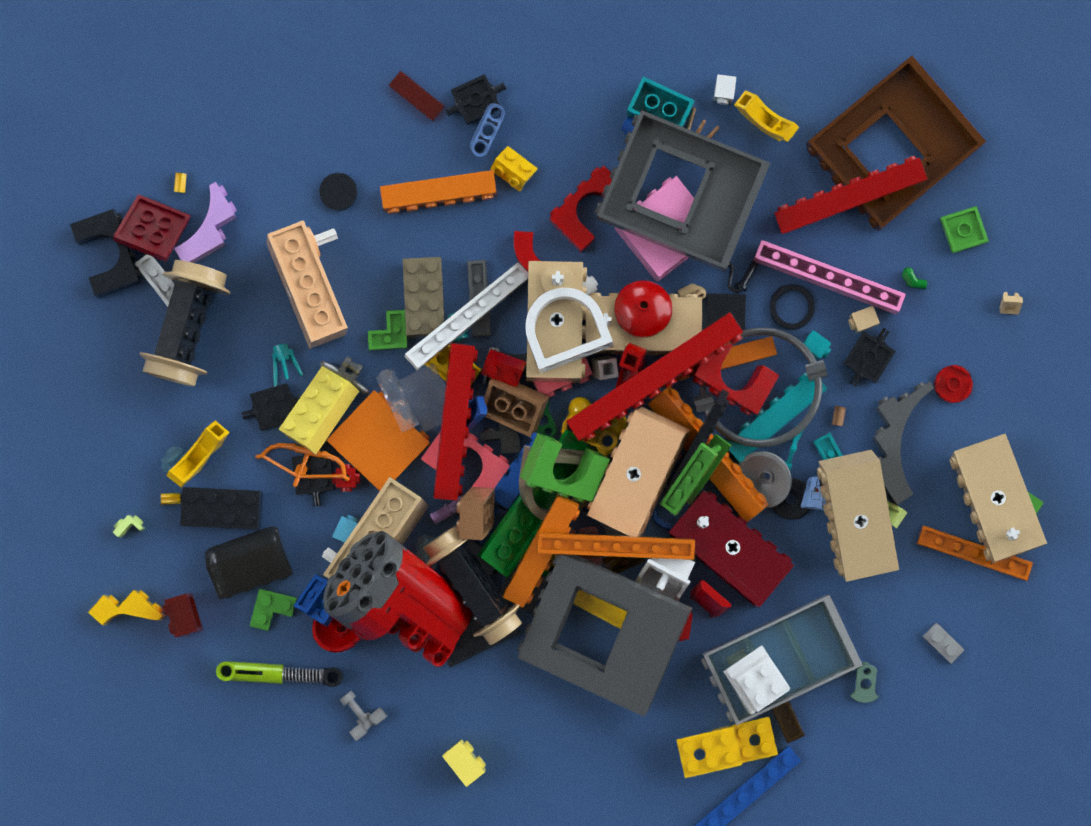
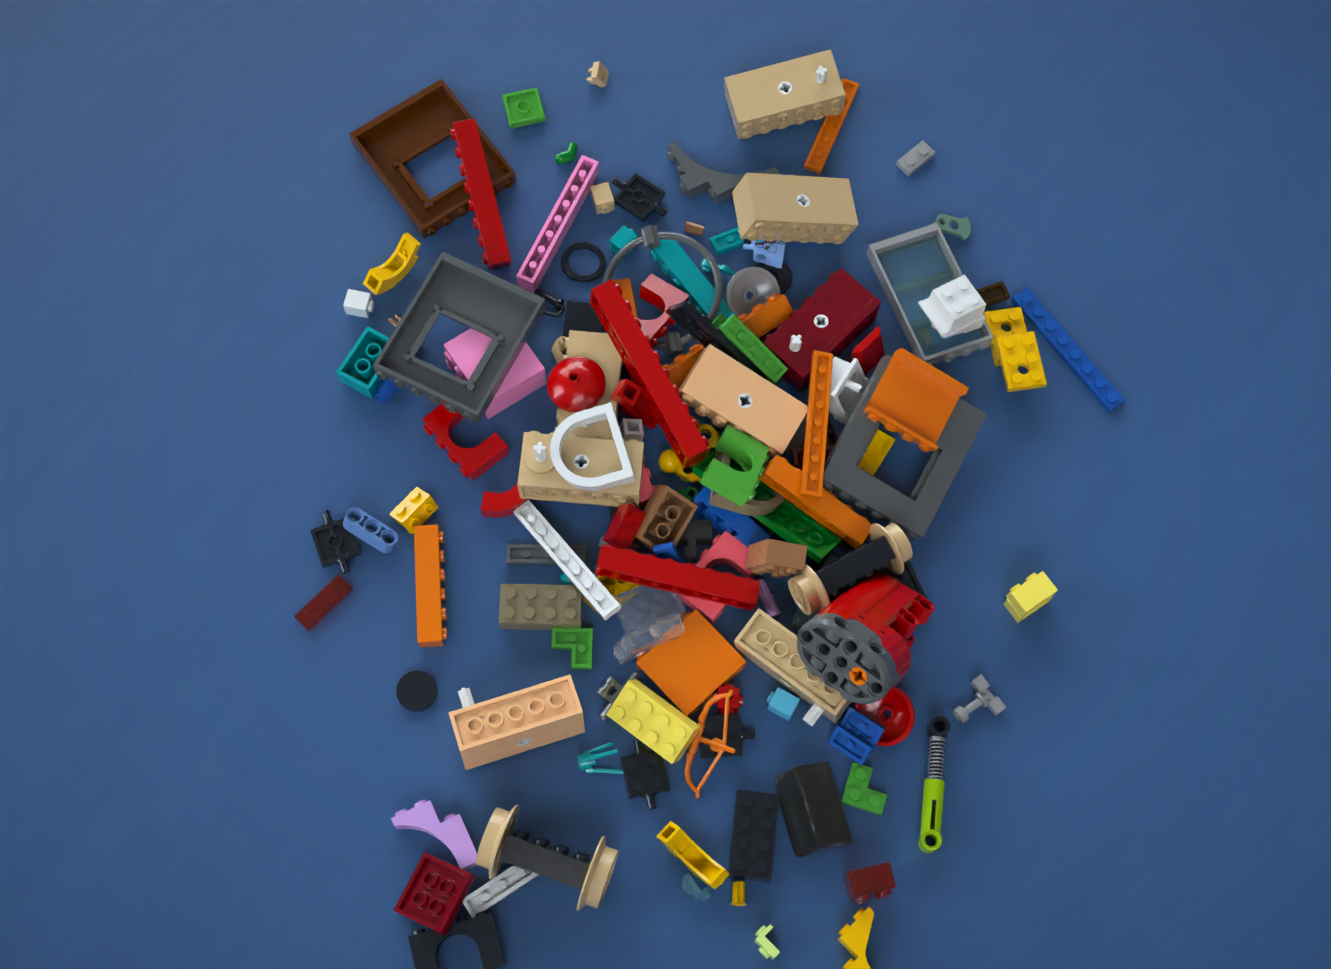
camera: 85 degrees left, 15 degrees down
(180, 182) = (386, 862): yellow piece -> none
(644, 640) = (914, 399): none -> orange panel
(953, 384) = (670, 129): red tile -> none

